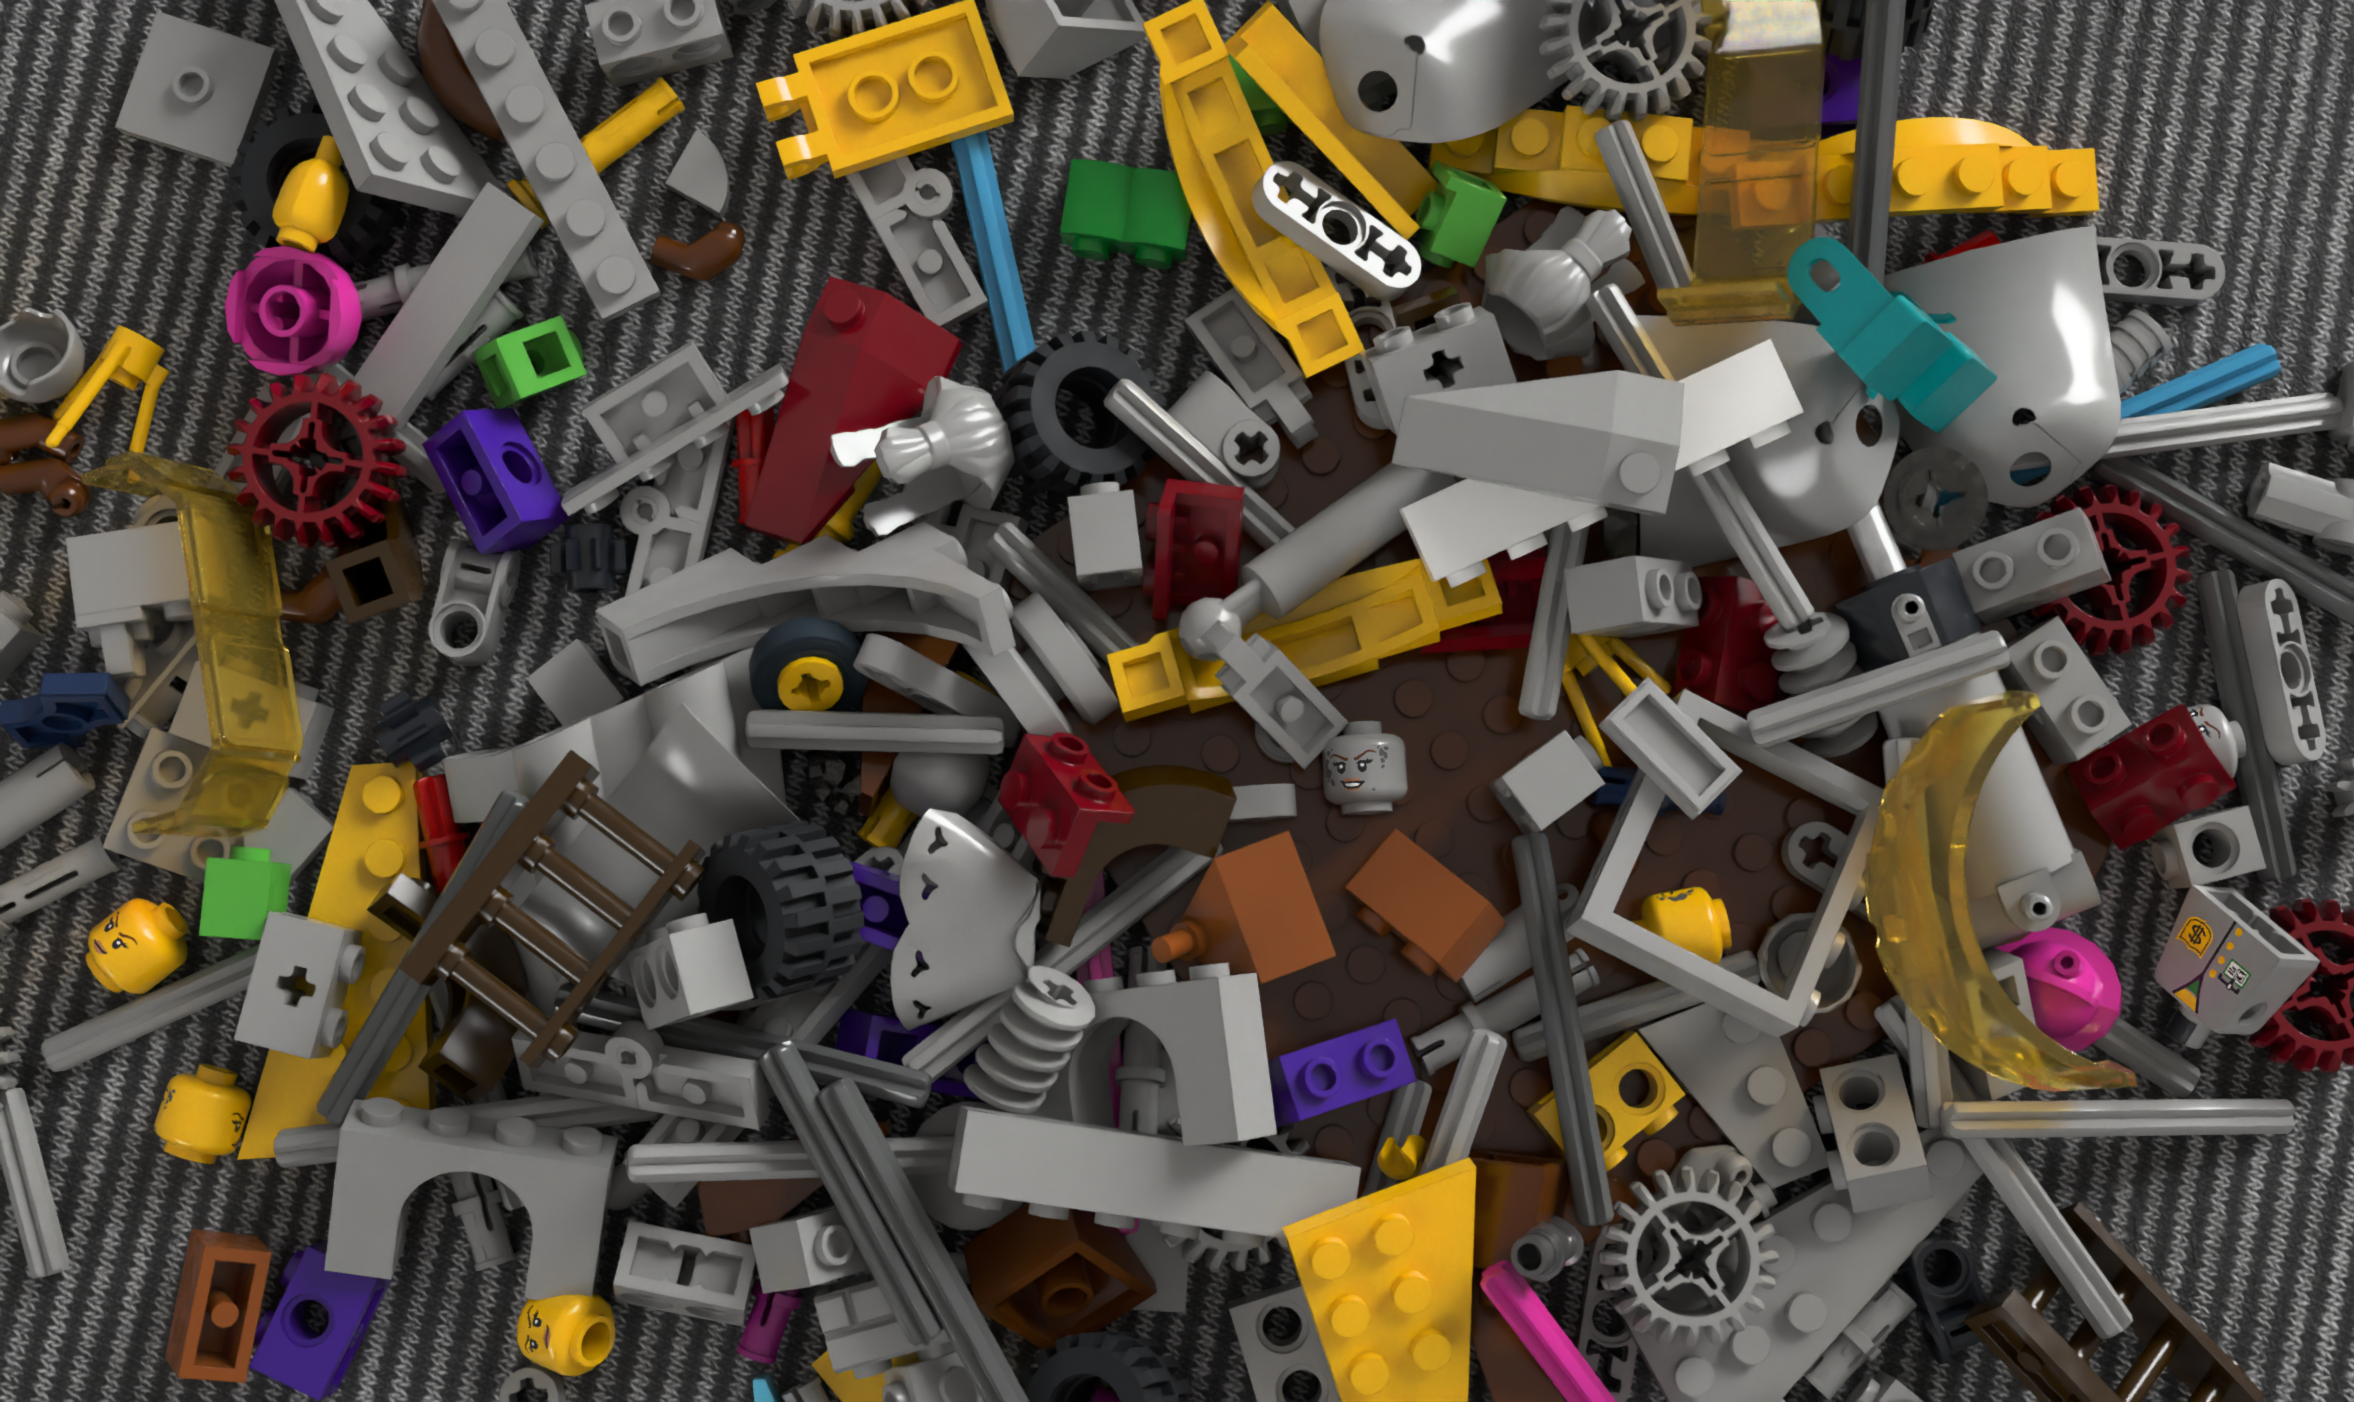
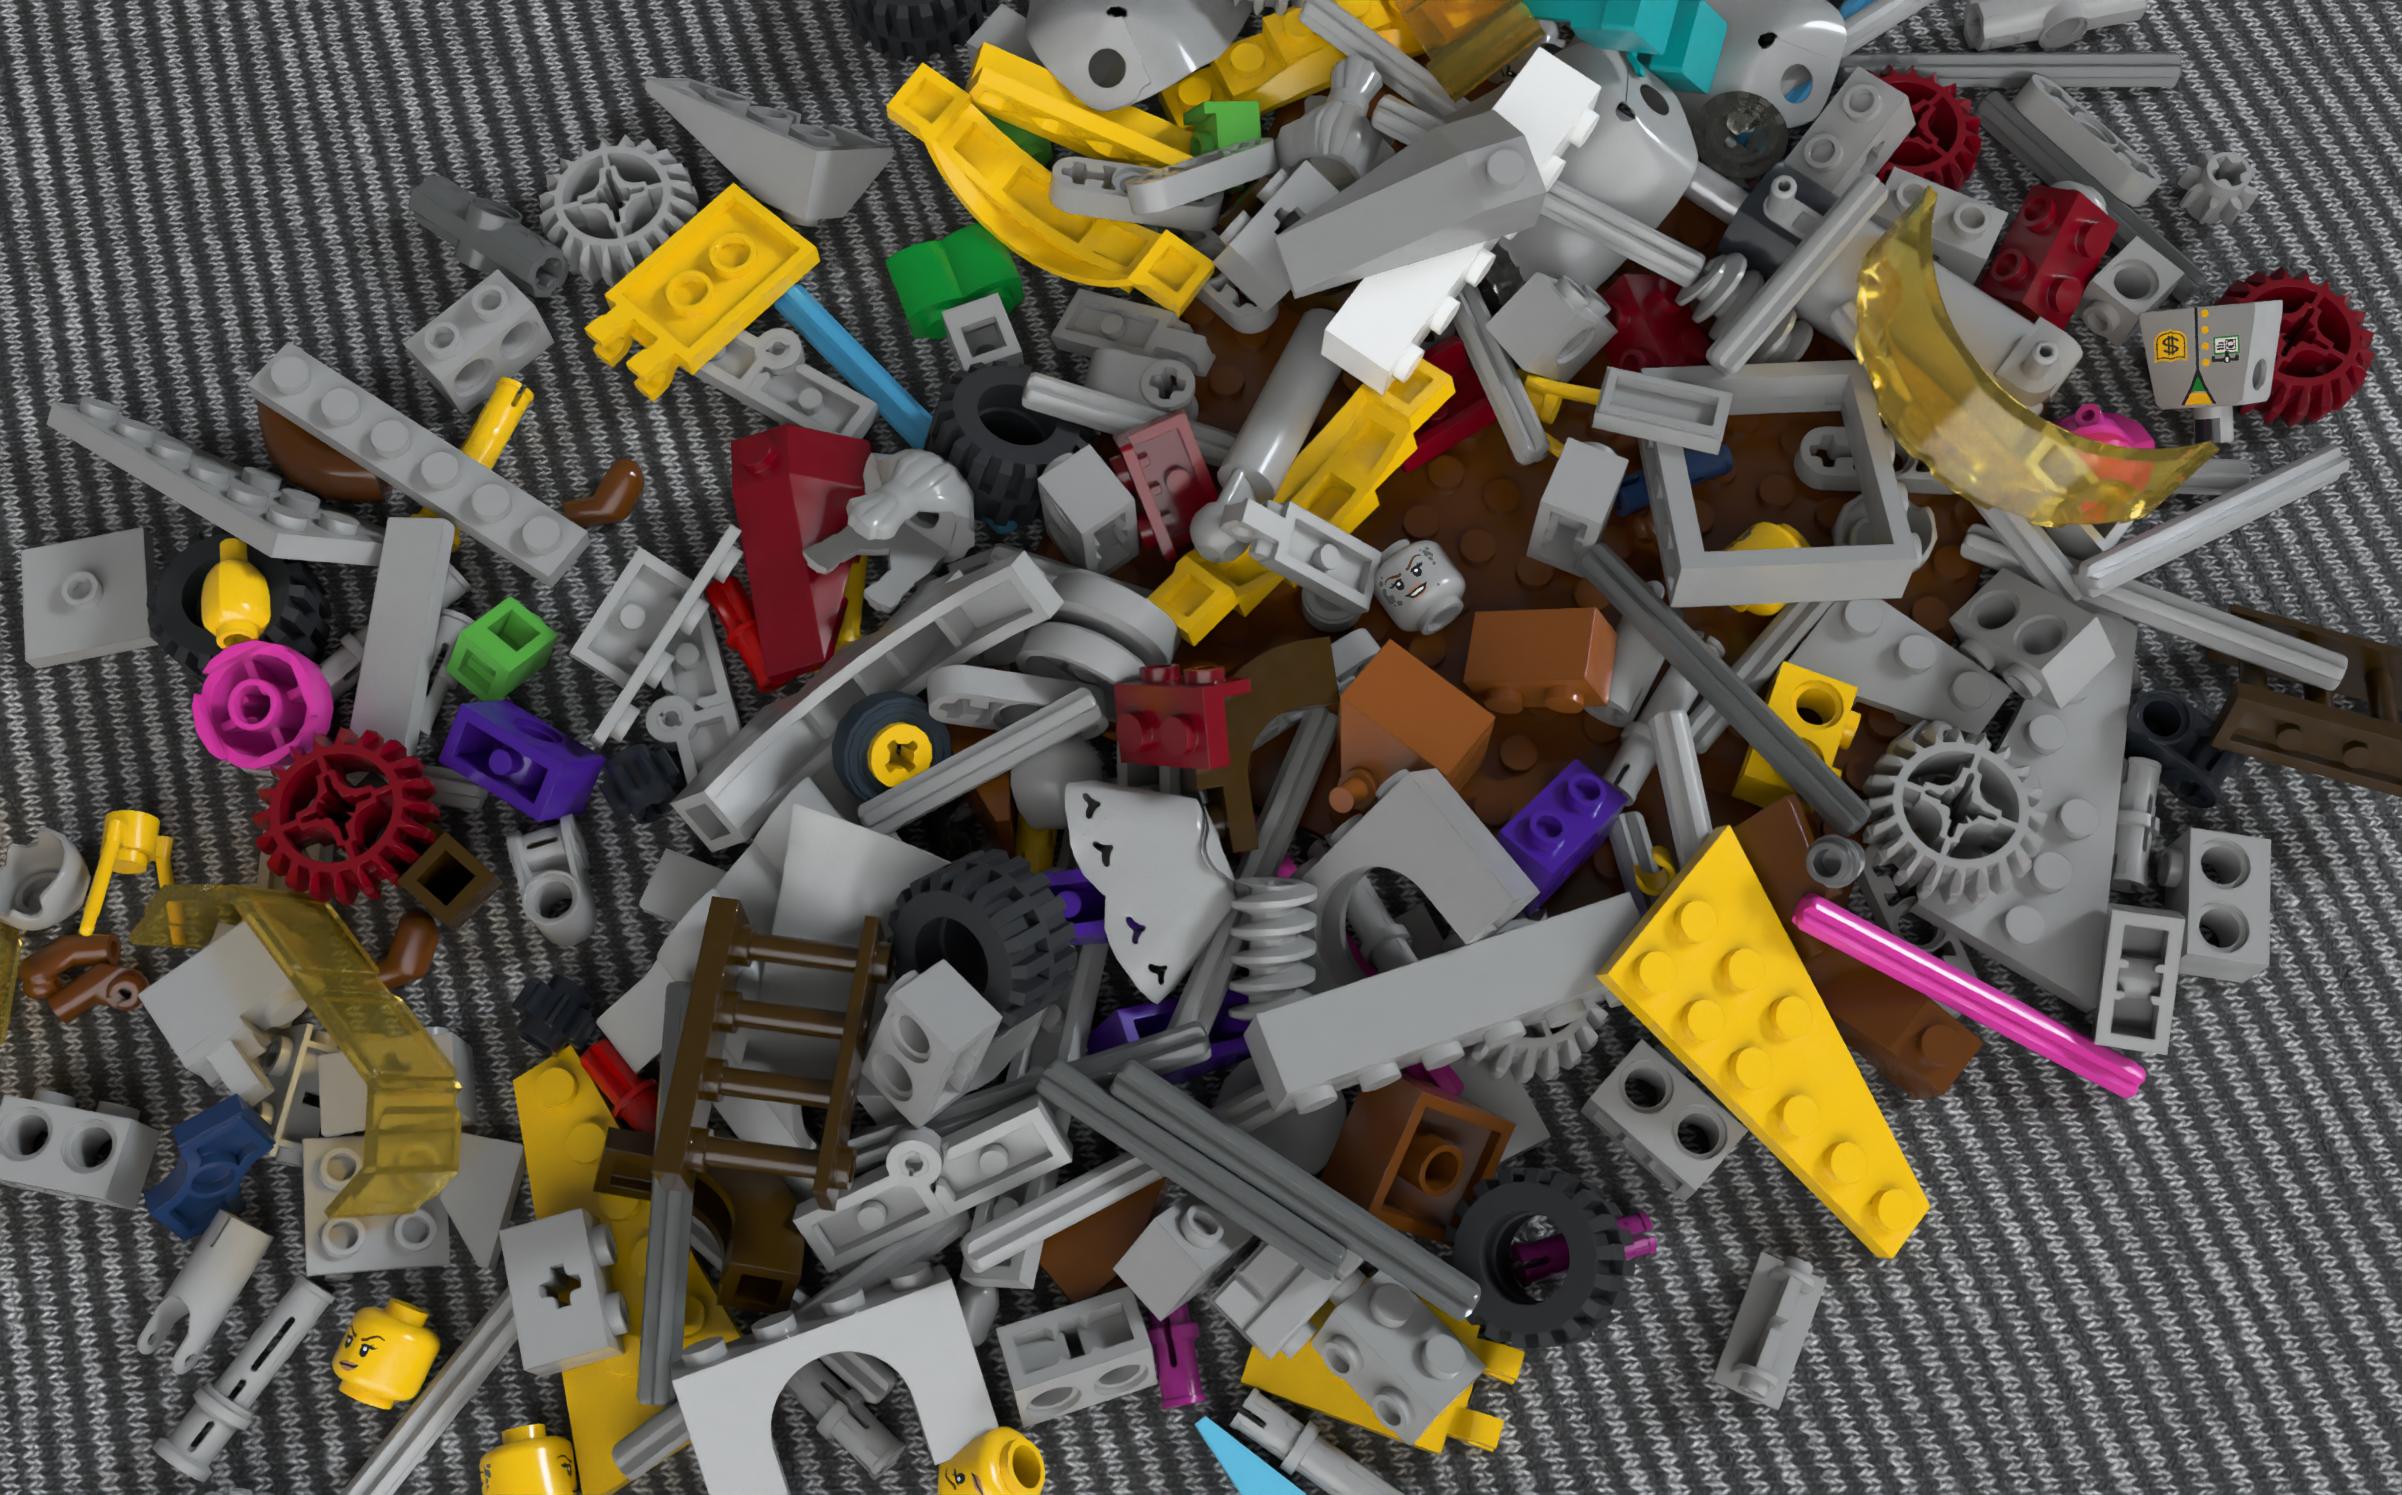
camera: 25 degrees left, 15 degrees down
(242, 893) = (465, 1243): bright green brick -> none
(702, 175) = (576, 440): light grey tile -> none
(1117, 276) = (981, 333): none -> light grey brick
(1400, 259) = (1201, 176): none -> light grey beam

